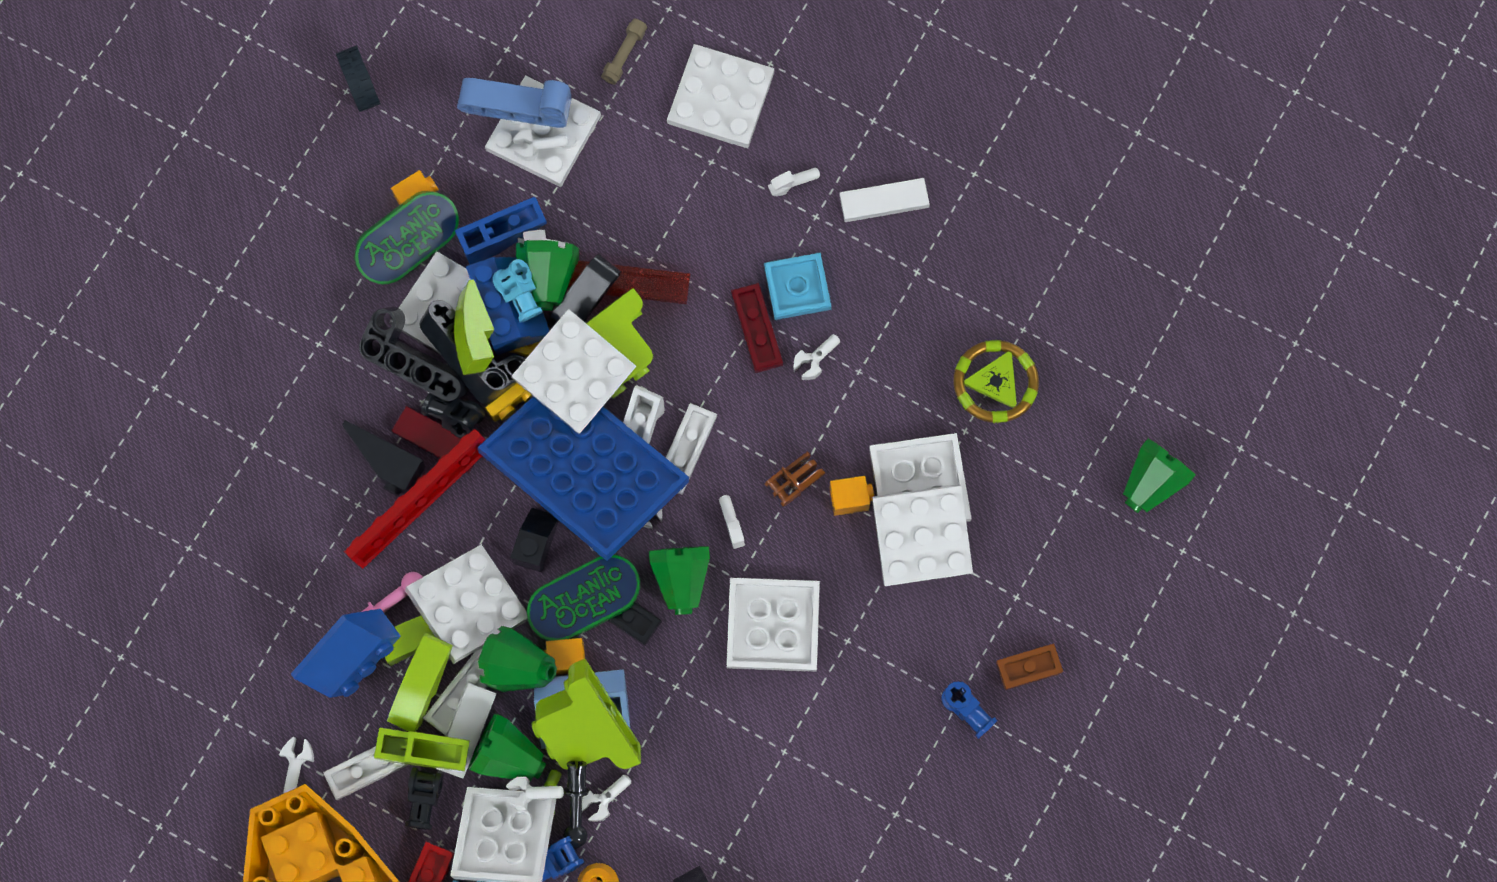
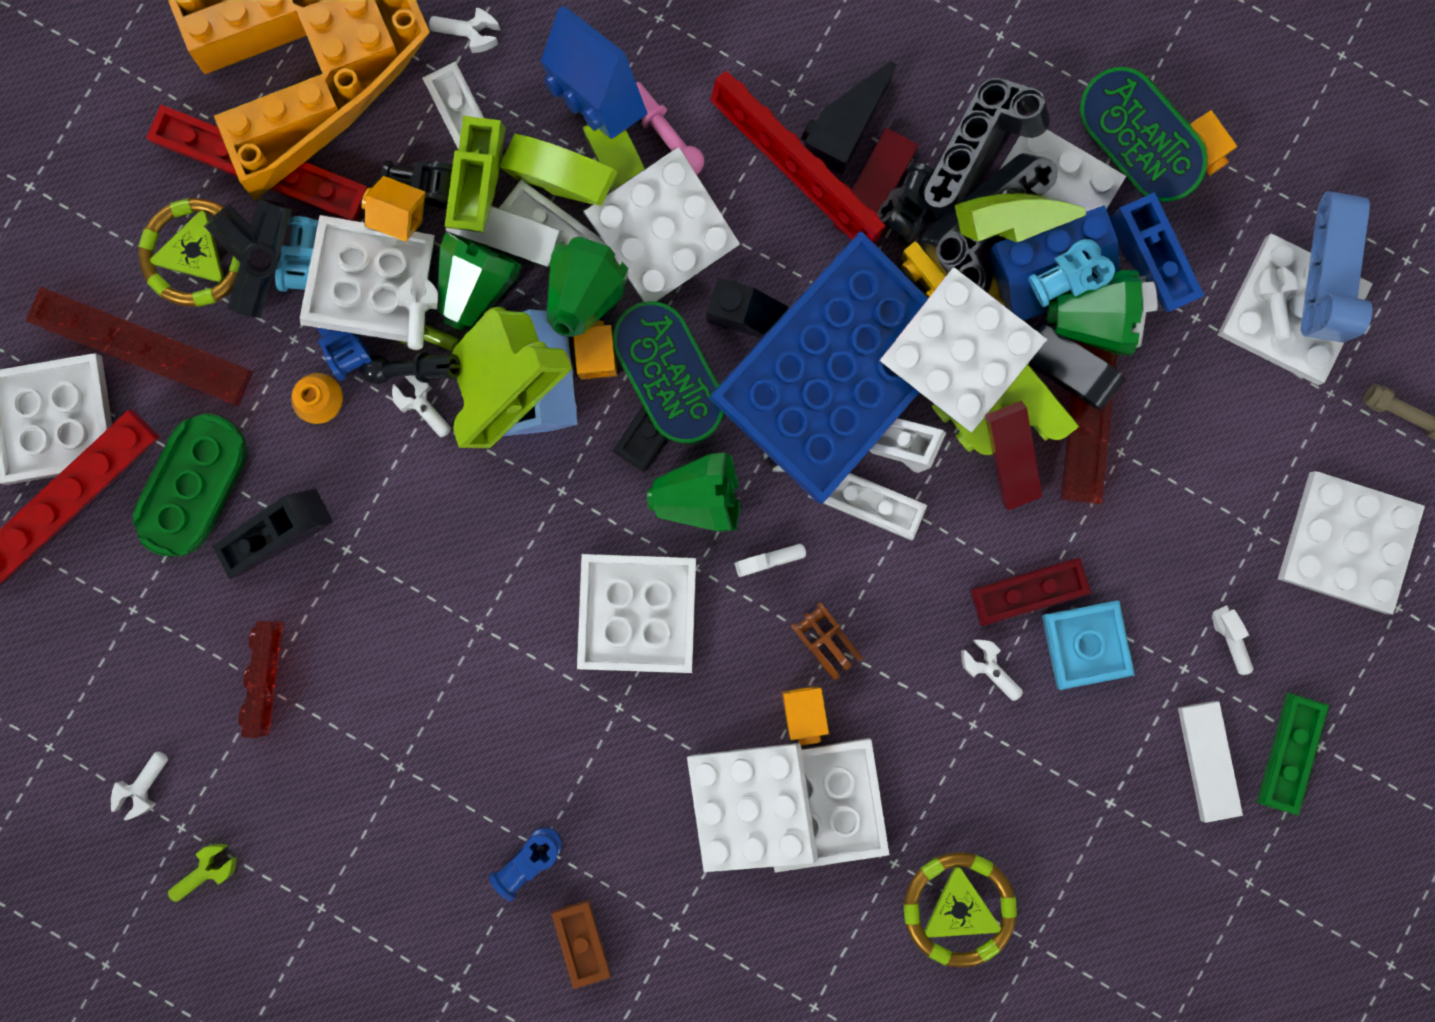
camera: 90 degrees right, 10 degrees up
(357, 78) = (1363, 60): black wheel -> none
(446, 816) = (393, 208): none -> light orange brick
(654, 336) = (1014, 455): none -> dark red tile
(878, 141) = (1292, 754): none -> green tile

